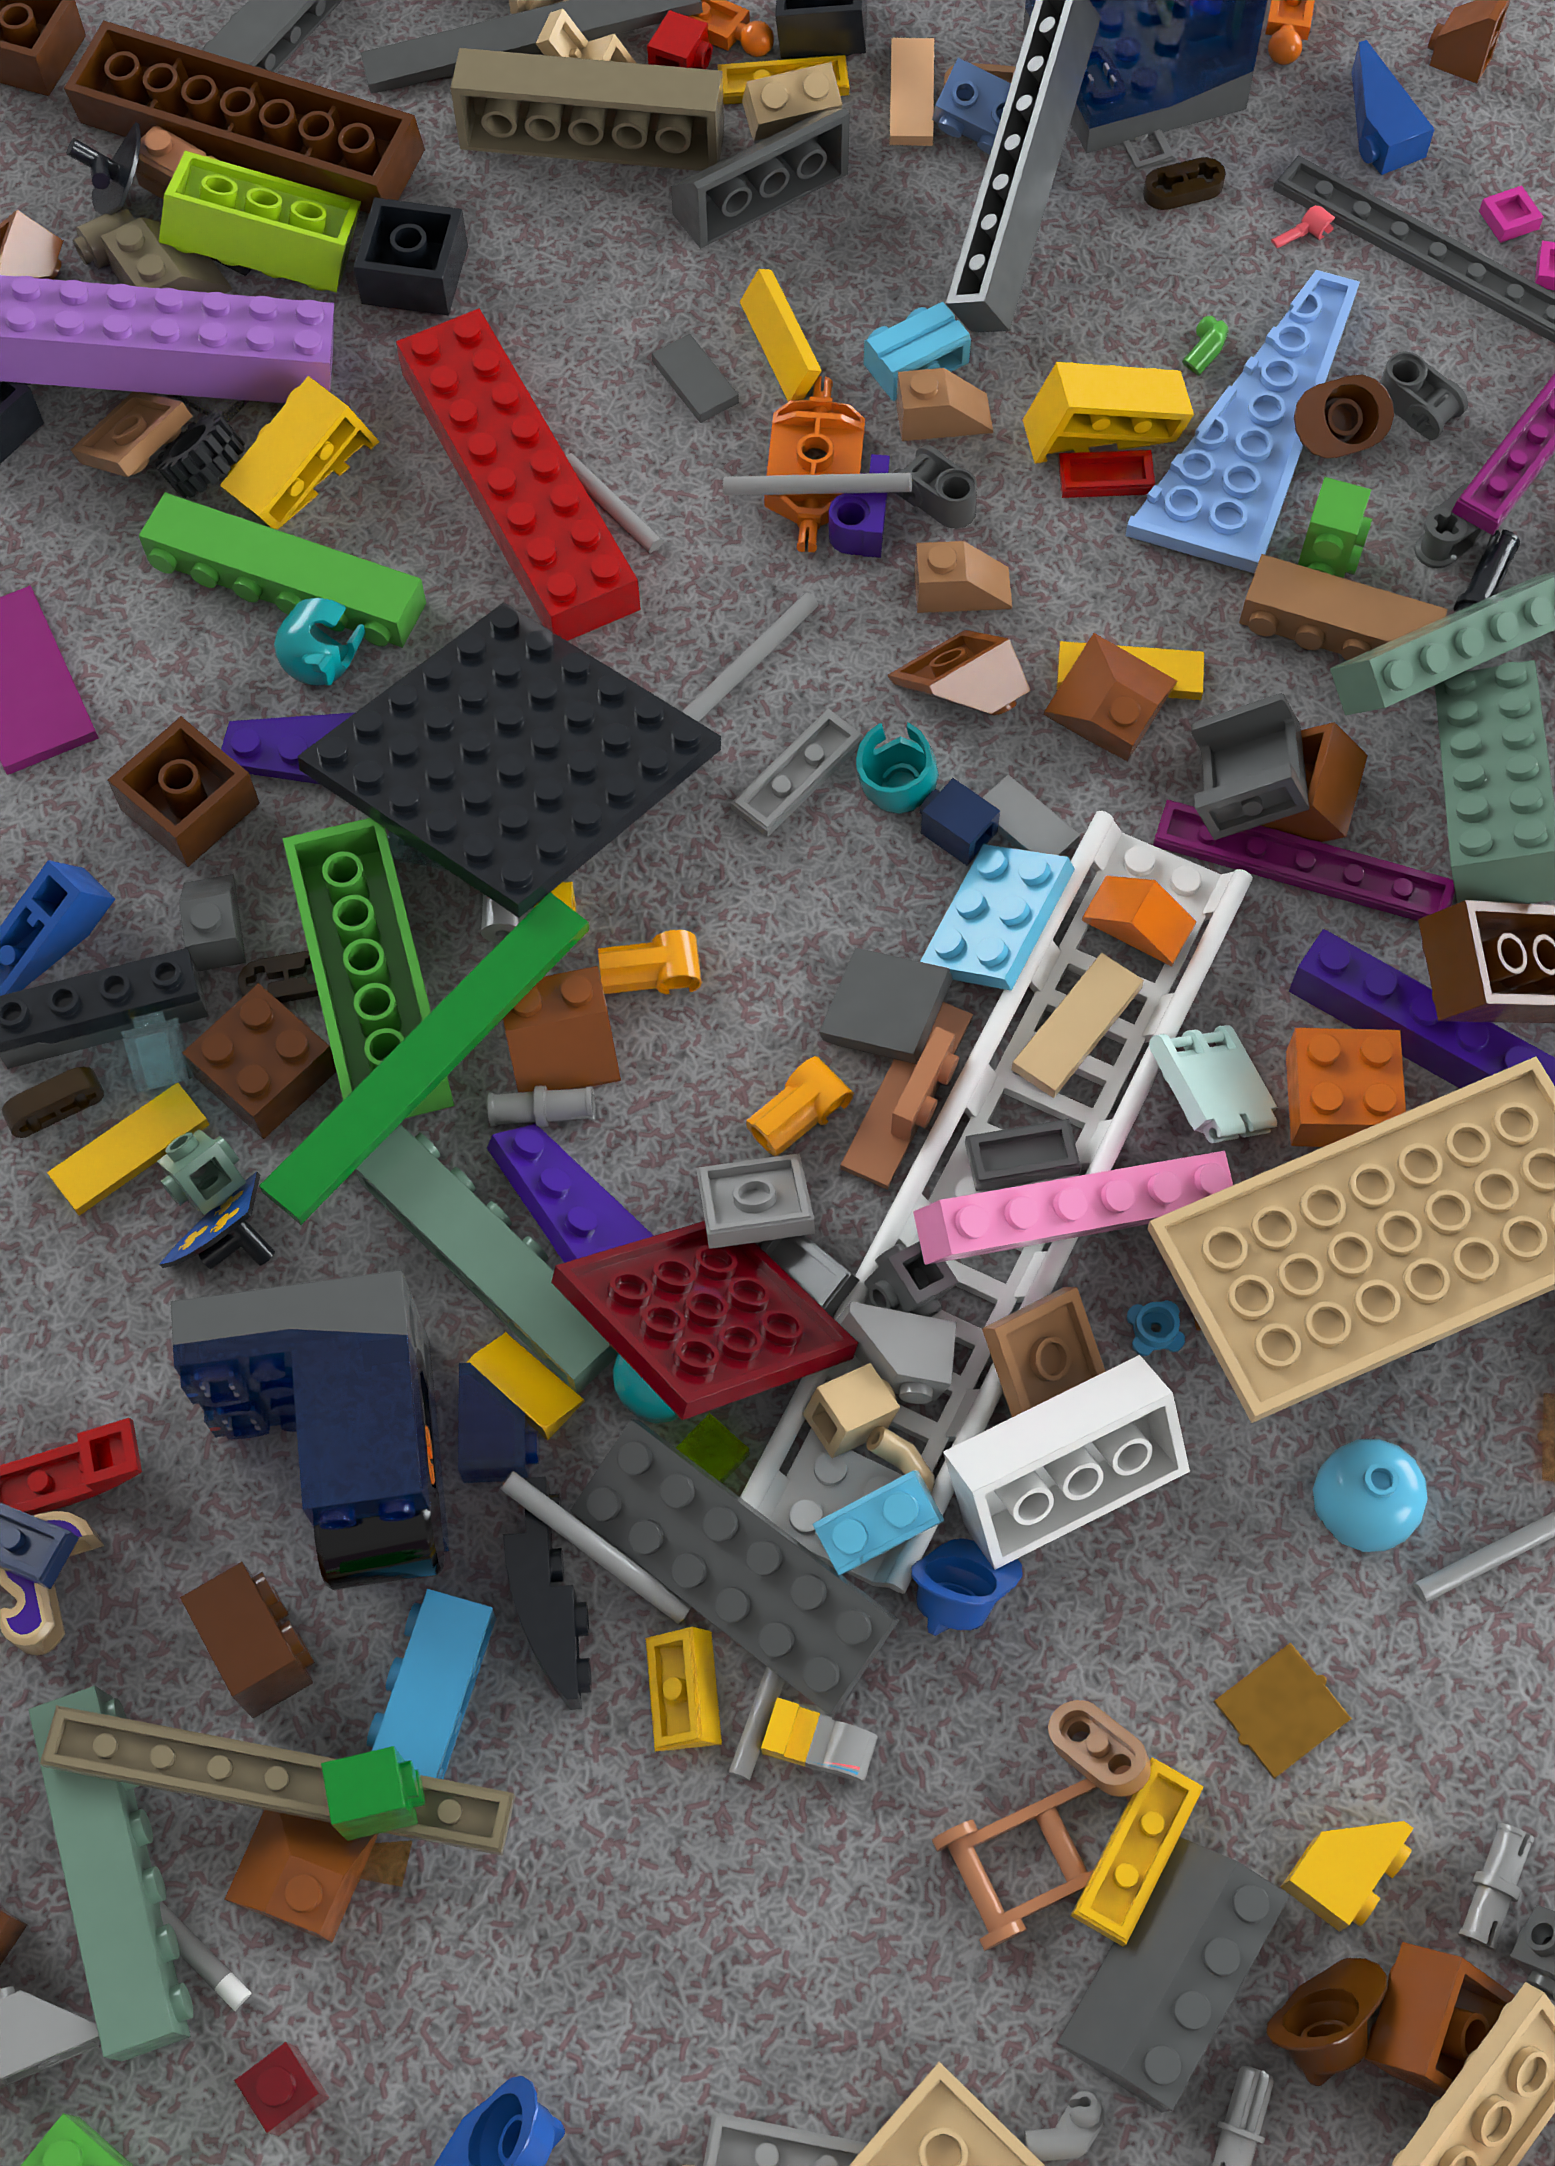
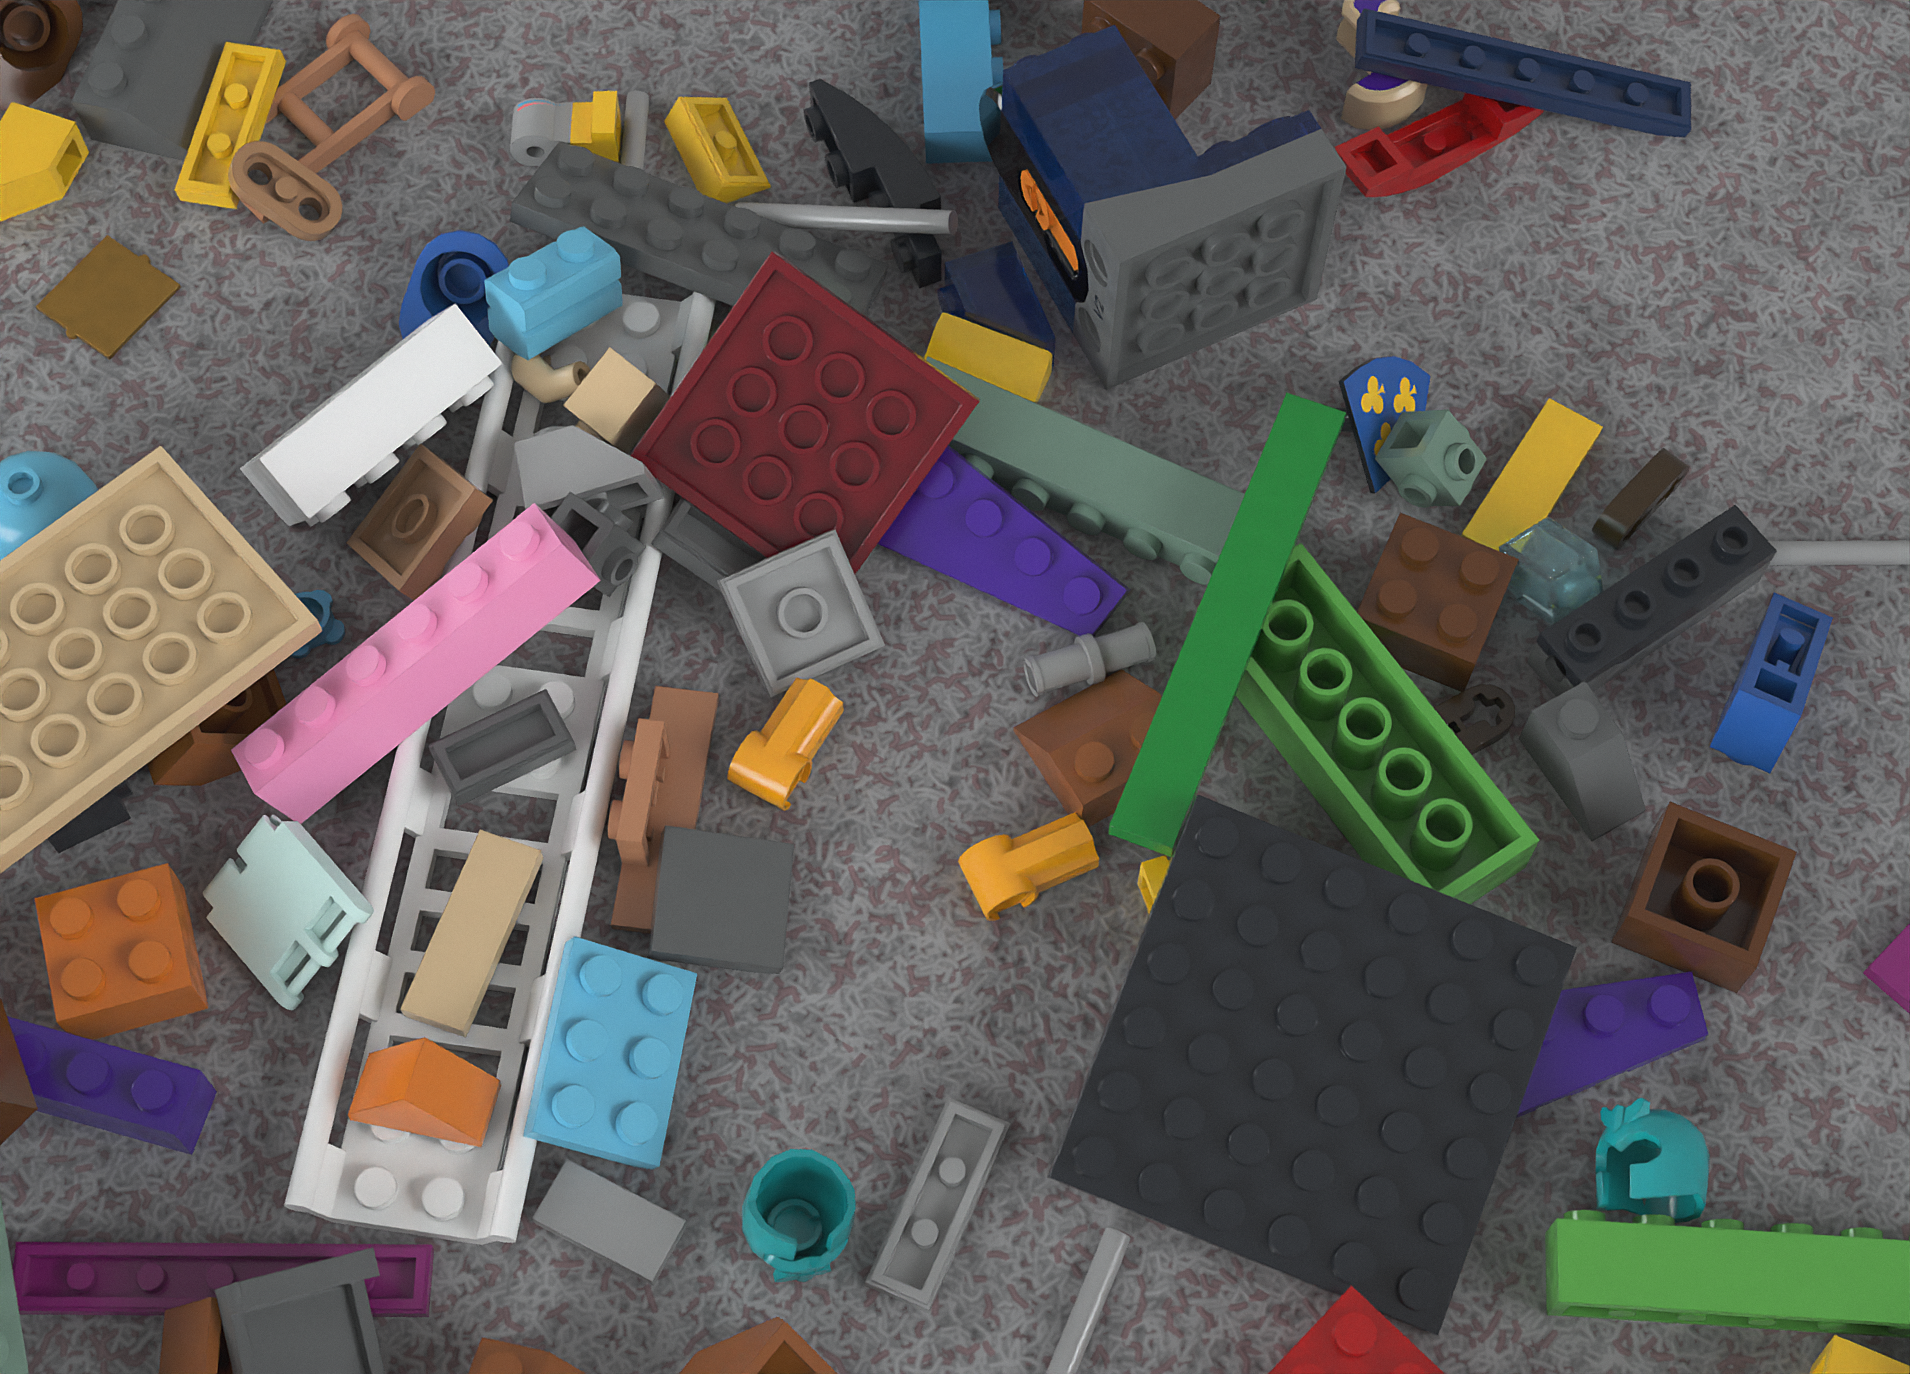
camera: 160 degrees right, 0 degrees up
(958, 820) = (698, 1179): dark blue brick -> none

